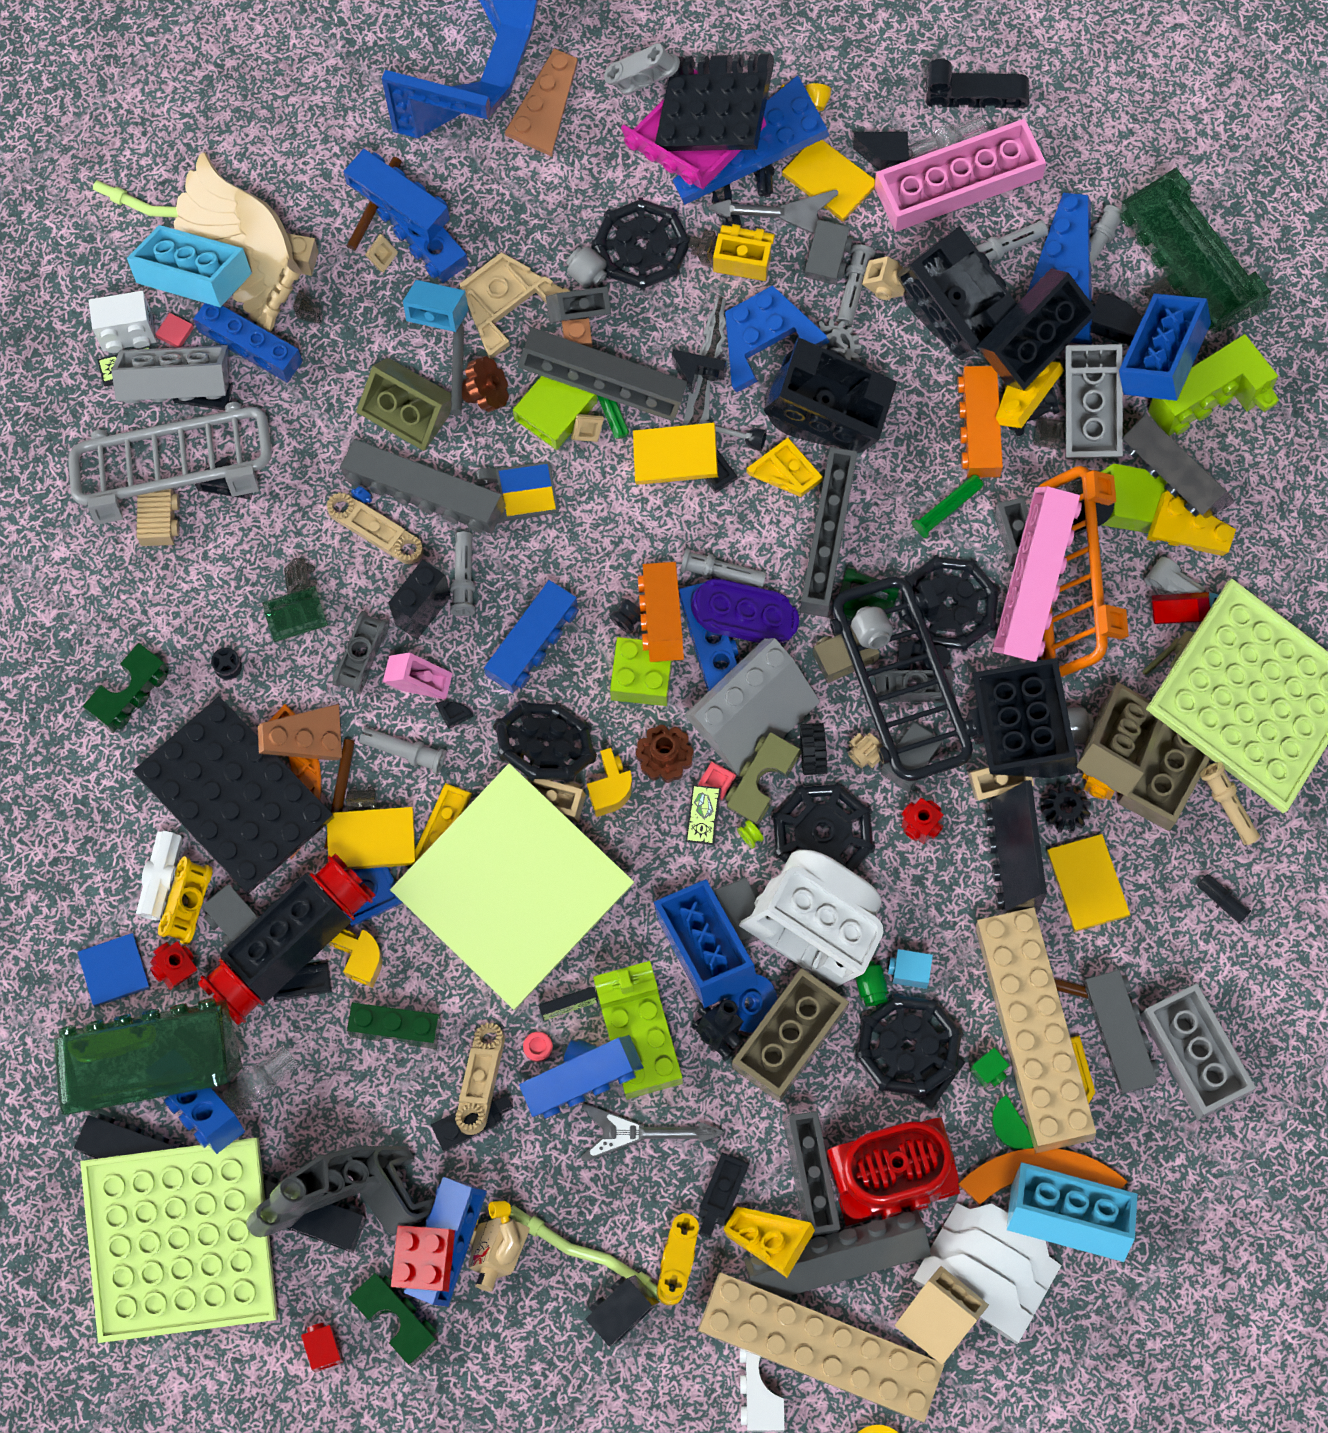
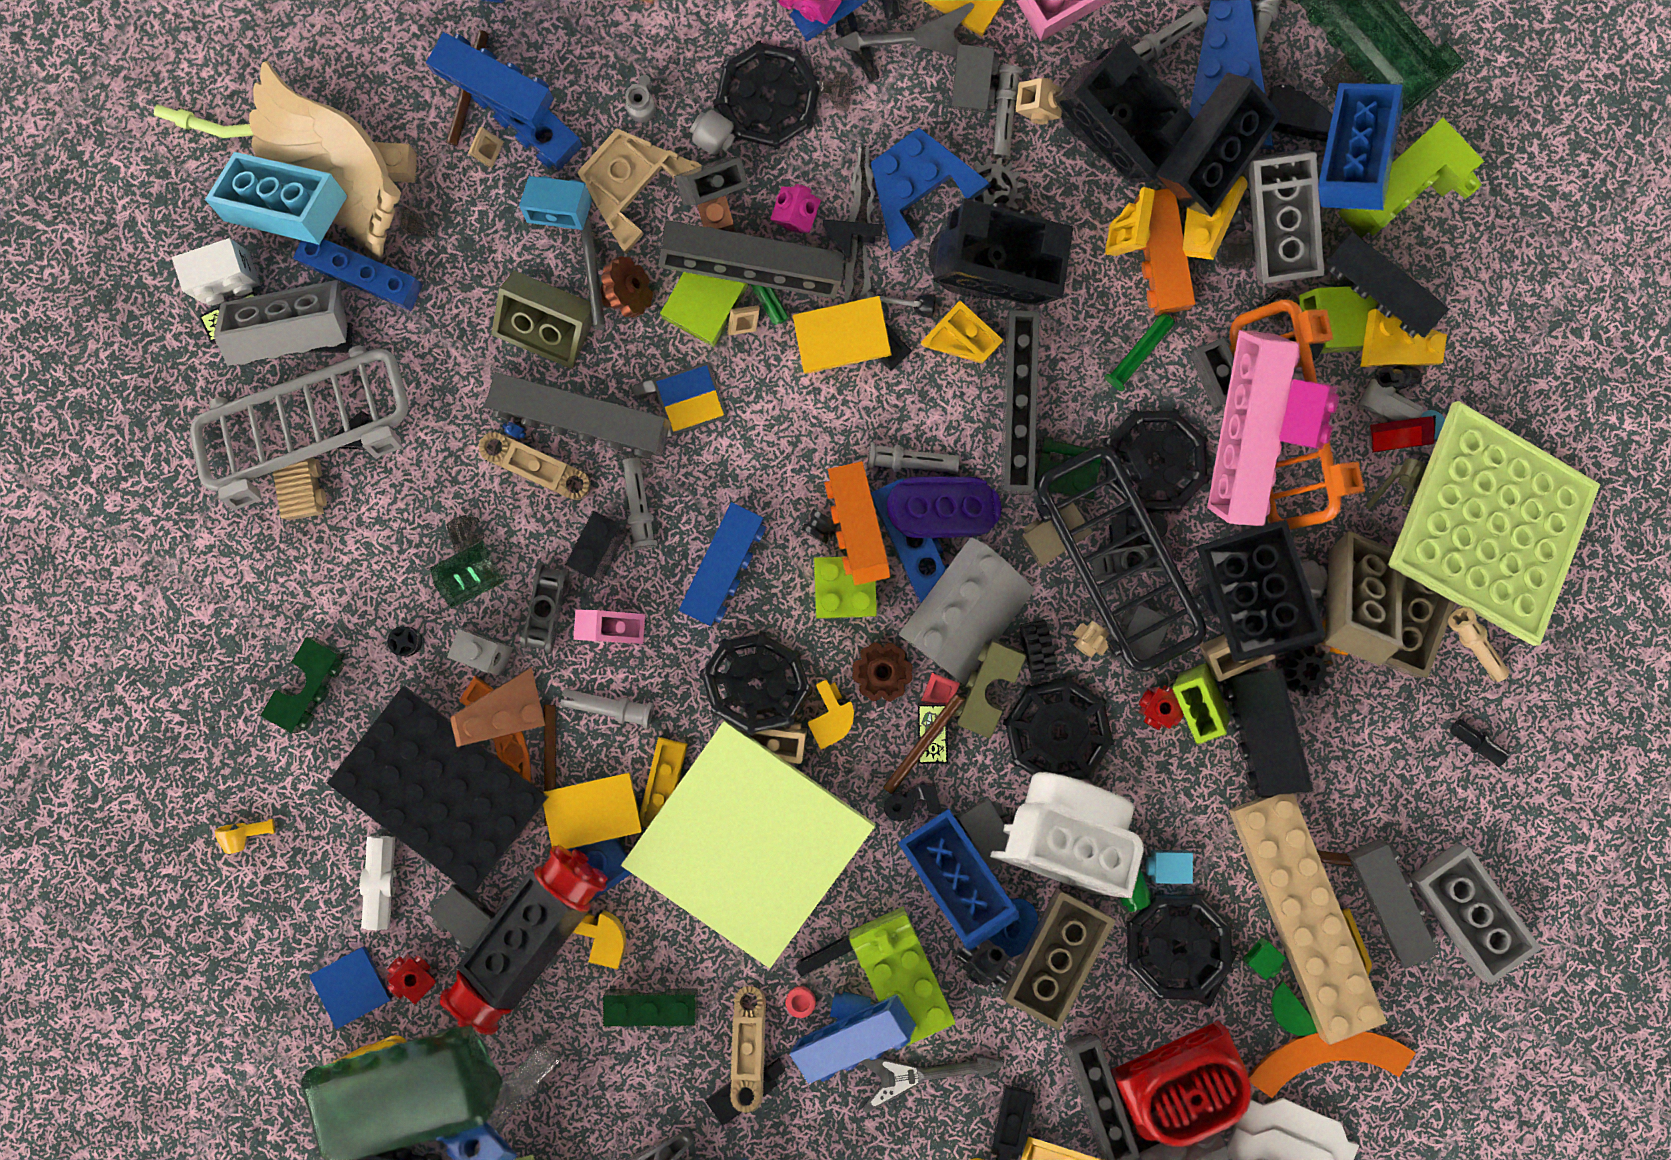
camera: 10 degrees left, 15 degrees up
(34, 815) = (235, 840): none -> yellow bar
(174, 330) = (277, 269): coral tile -> none
(181, 920) = (410, 885): yellow piece -> none
(291, 679) = (479, 651): none -> light grey torso
(307, 982) = (560, 969): black tile -> none
(361, 799) = (575, 772): clear smoke tile -> none
(453, 713) = (653, 658): black tile -> none
(525, 232) = (639, 101): none -> light grey piece
(650, 340) = (795, 209): none -> dark pink brick
(663, 877) = (900, 807): none -> black leg
(691, 822) = (924, 743): none -> reddish brown bar
(743, 252) = (879, 95): yellow brick -> none
(750, 834) = (984, 747): lime bush -> none
(872, 627) = (1085, 513): light grey head -> none
(953, 393) = (1131, 228): none -> yellow wing
(958, 814) = (1201, 703): none -> lime brick
(1072, 1212) = (1370, 1102): medium azure brick -> none
(1084, 560) = (1309, 414): none -> dark pink brick
(1088, 883) = (1338, 745): yellow tile -> none
(1184, 557) = (1399, 377): none -> black axle

